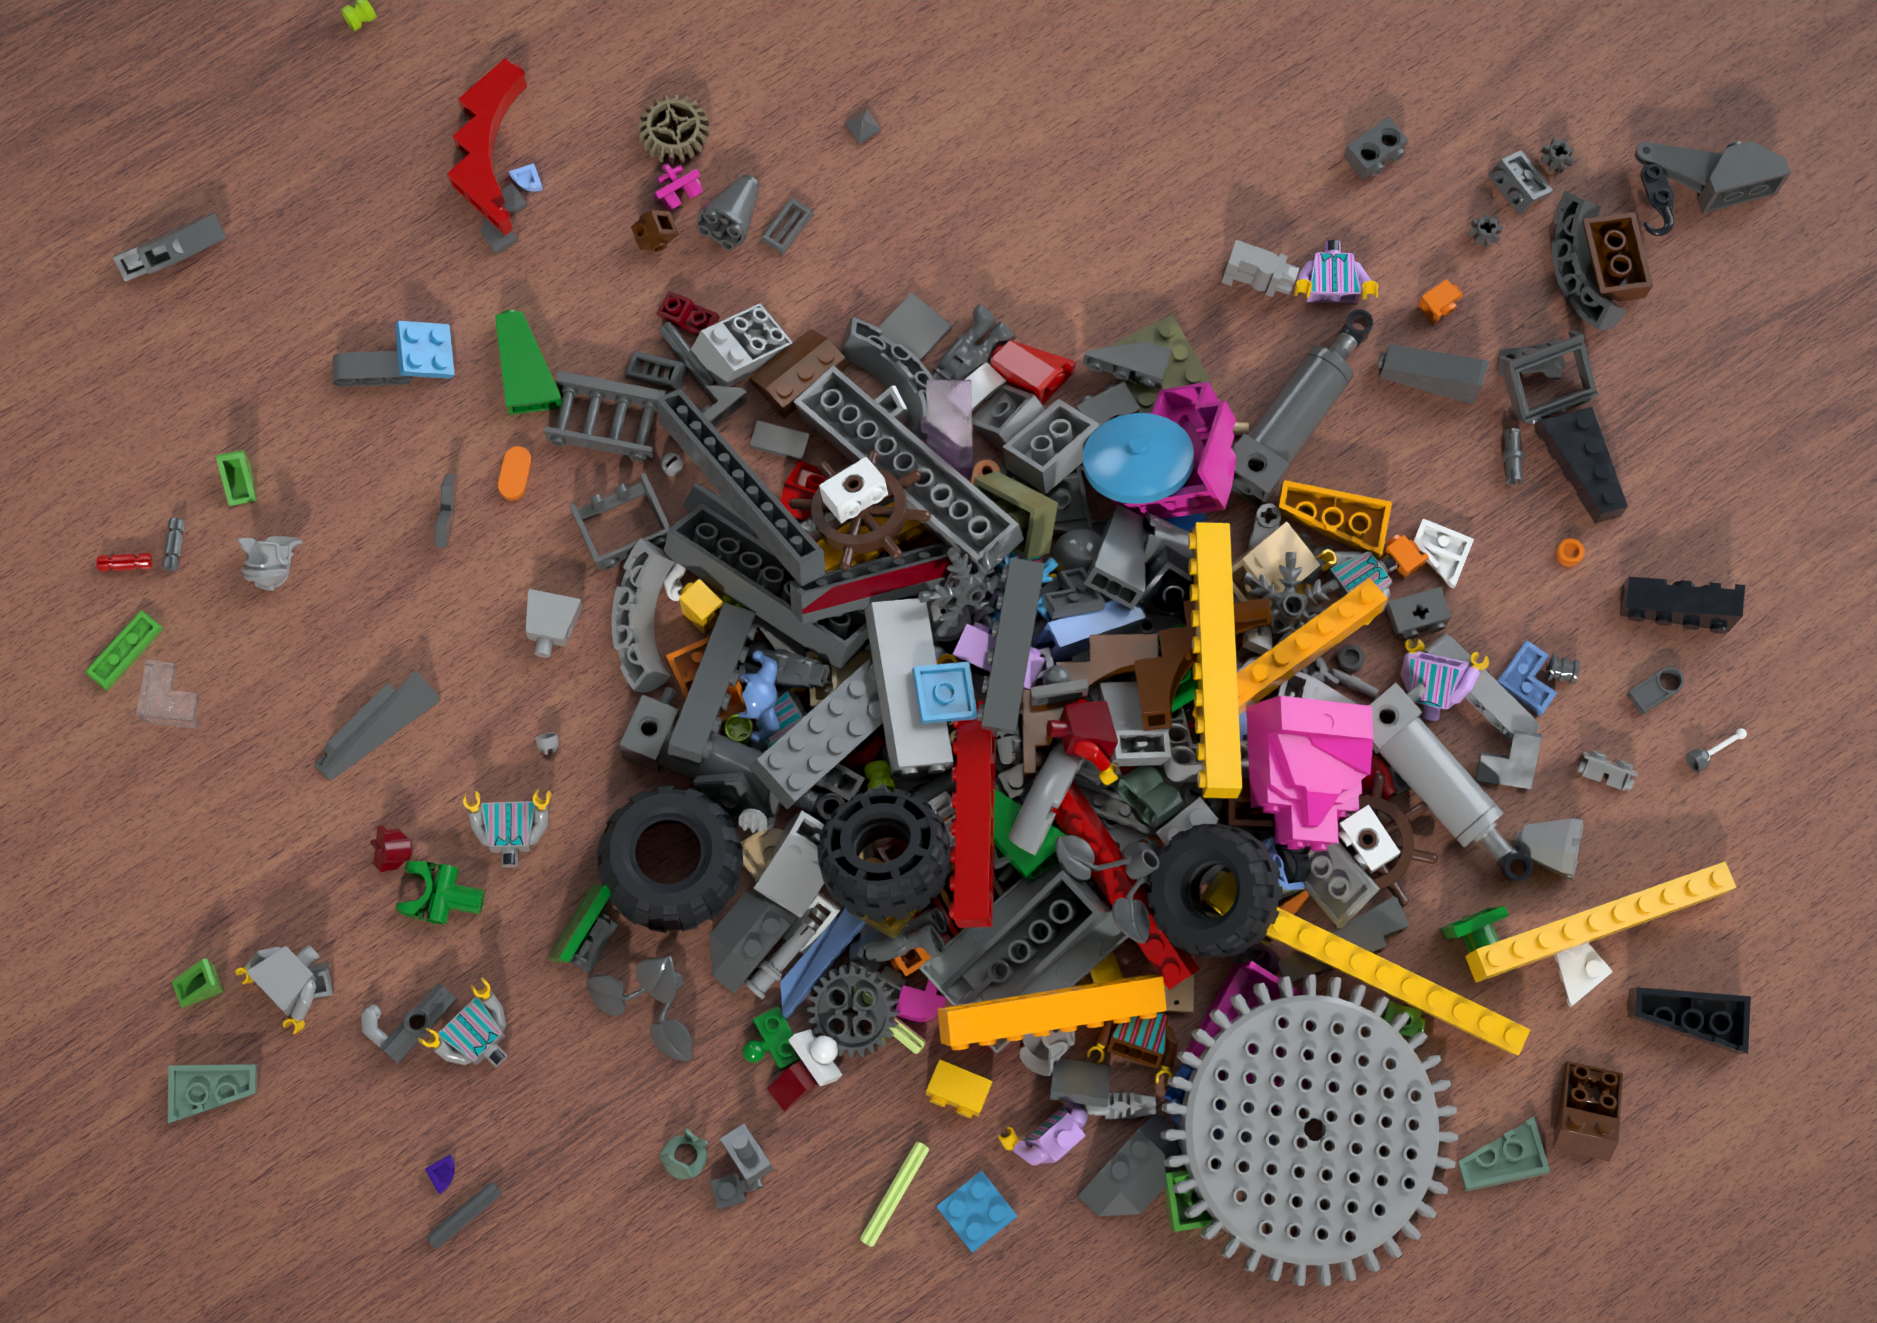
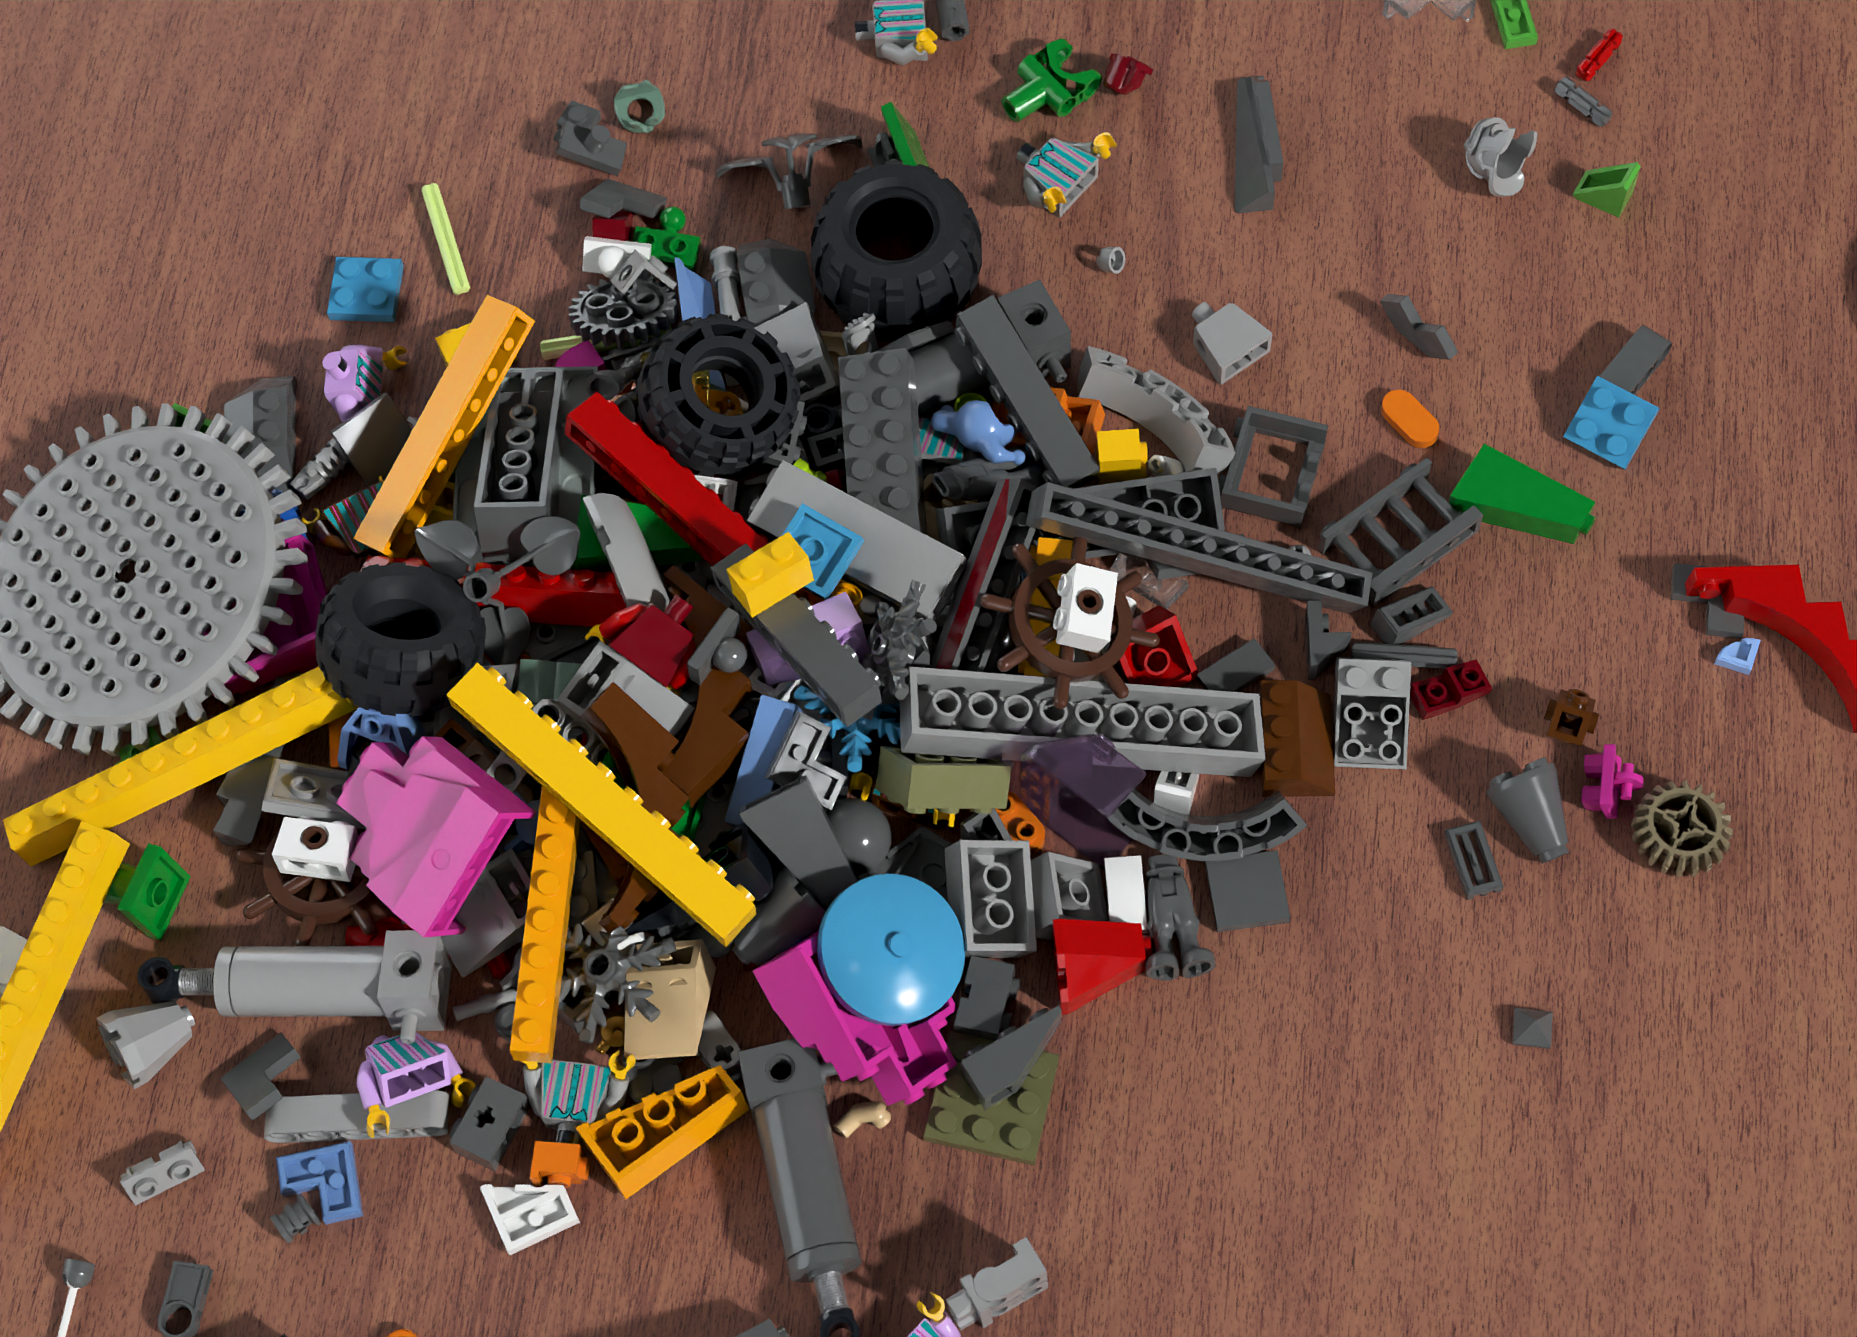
camera: 140 degrees right, 10 degrees down
(767, 1101) = (613, 196): none -> dark grey tile
(813, 1018) = (638, 264): none -> light grey bracket
(997, 676) = (770, 574): none -> yellow brick

